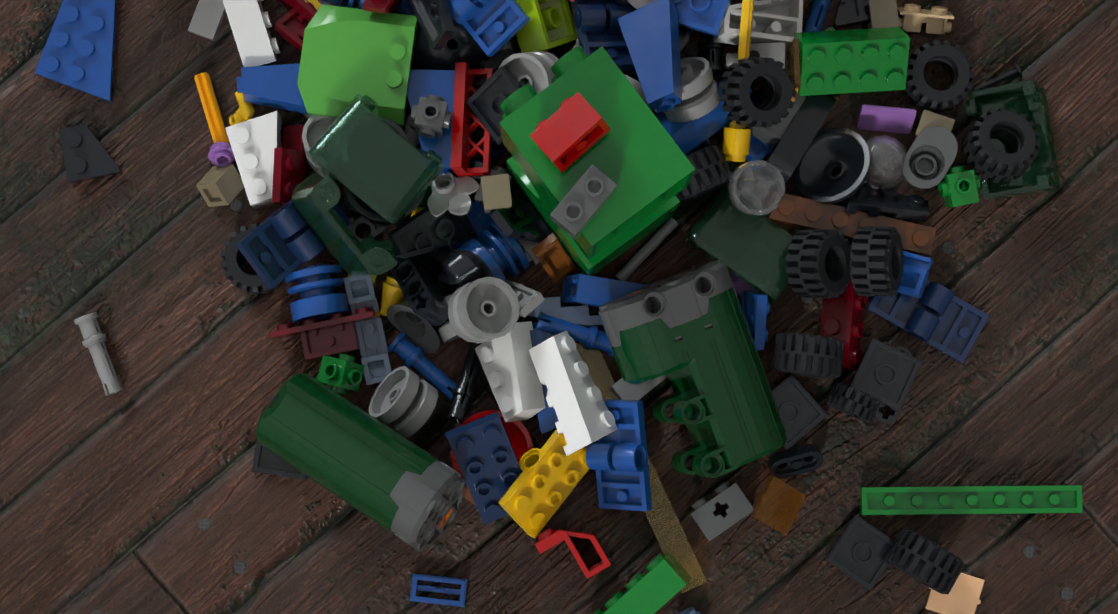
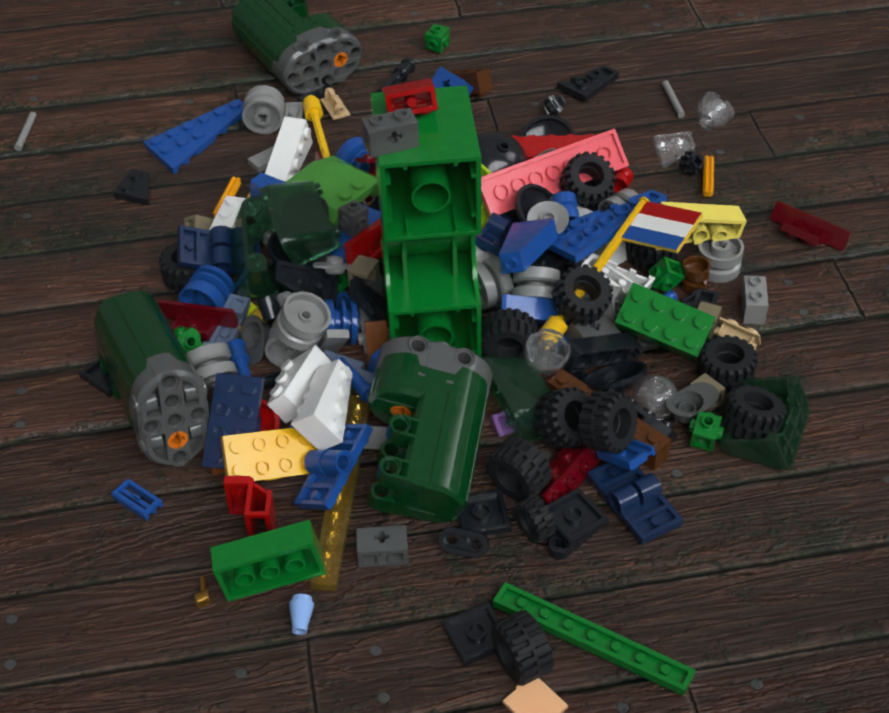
camera: 30 degrees right, 40 degrees down
(95, 342) = (51, 266): light grey pin -> none
(221, 154) = (209, 209): medium lavender plate -> none
(755, 308) = (491, 441): blue plate -> none
(778, 505) = (429, 561): clear orange piece -> none
(793, 65) = (617, 302): clear orange piece -> none
(885, 119) = (677, 372): medium lavender slope -> none

